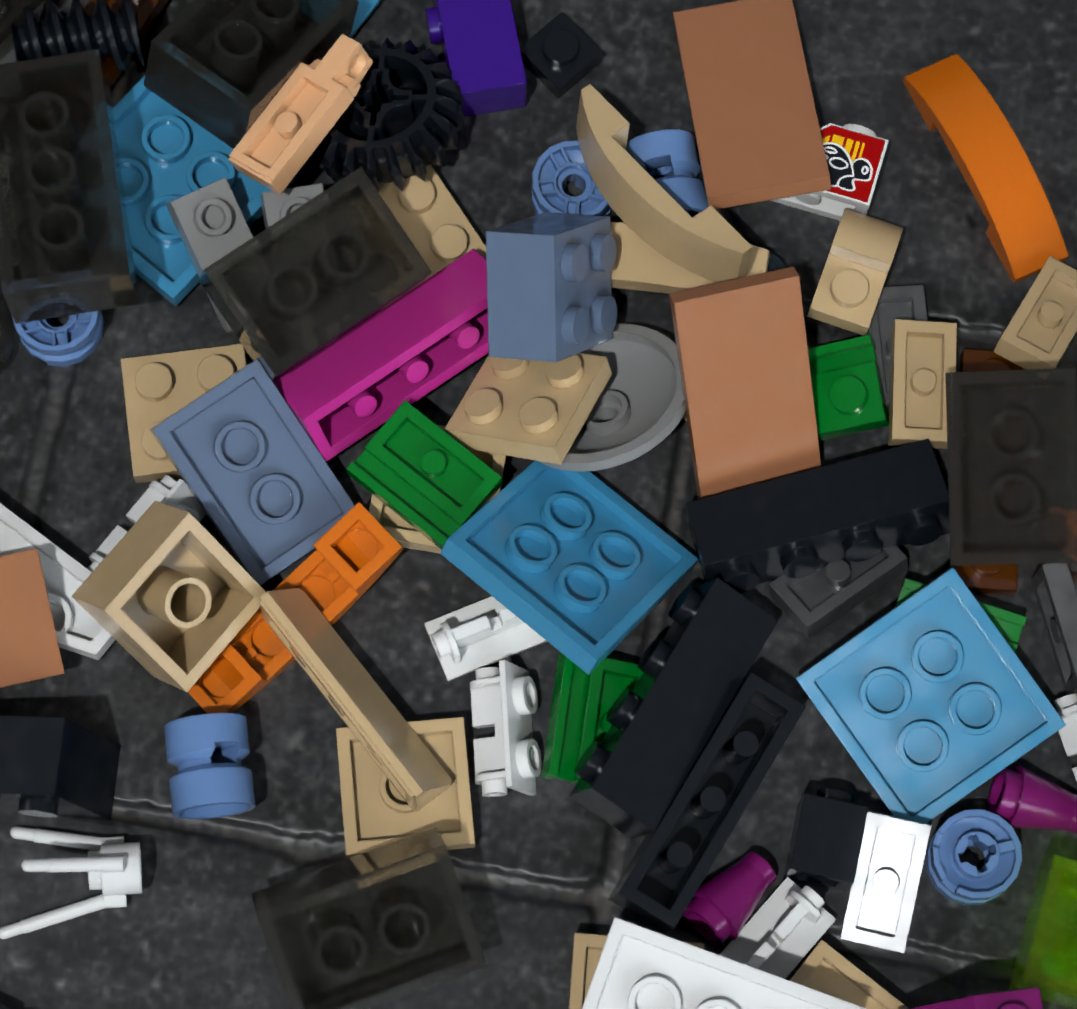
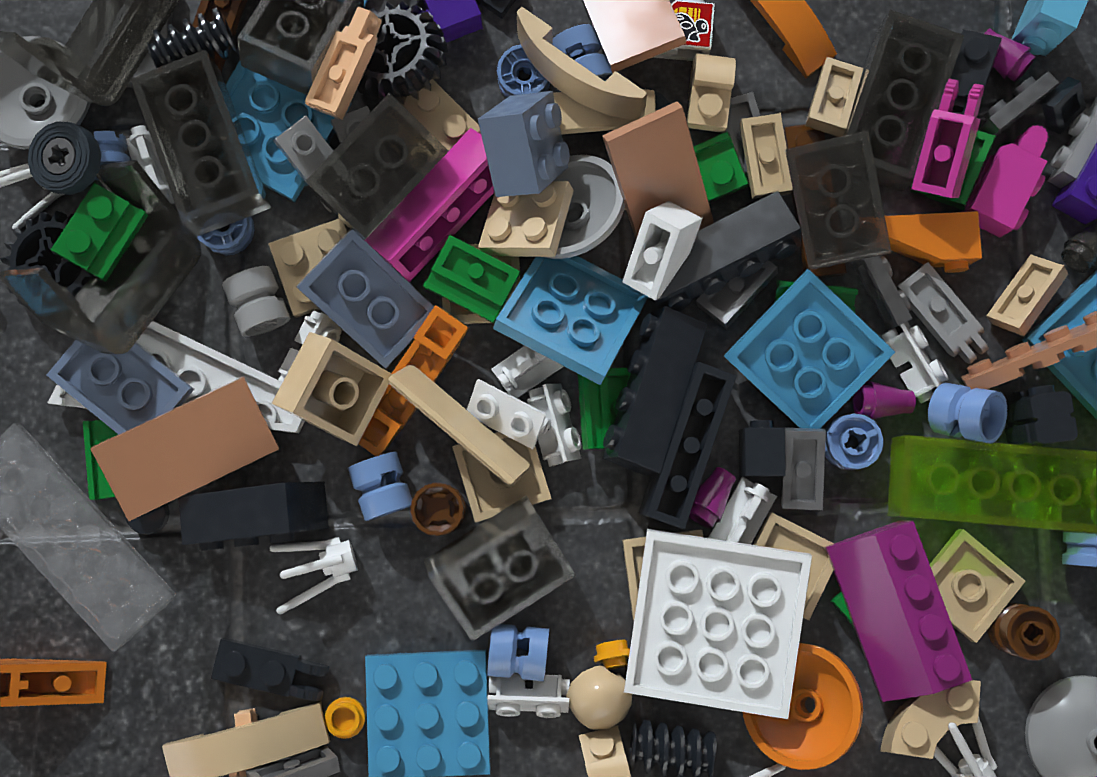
camera: 10 degrees left, 10 degrees up
(82, 449) = (255, 297): none -> light grey wheel
(293, 820) = (438, 509): none -> reddish brown wheel
(435, 695) = (507, 414): none -> white hinge
(727, 486) = (661, 248): none -> white slope

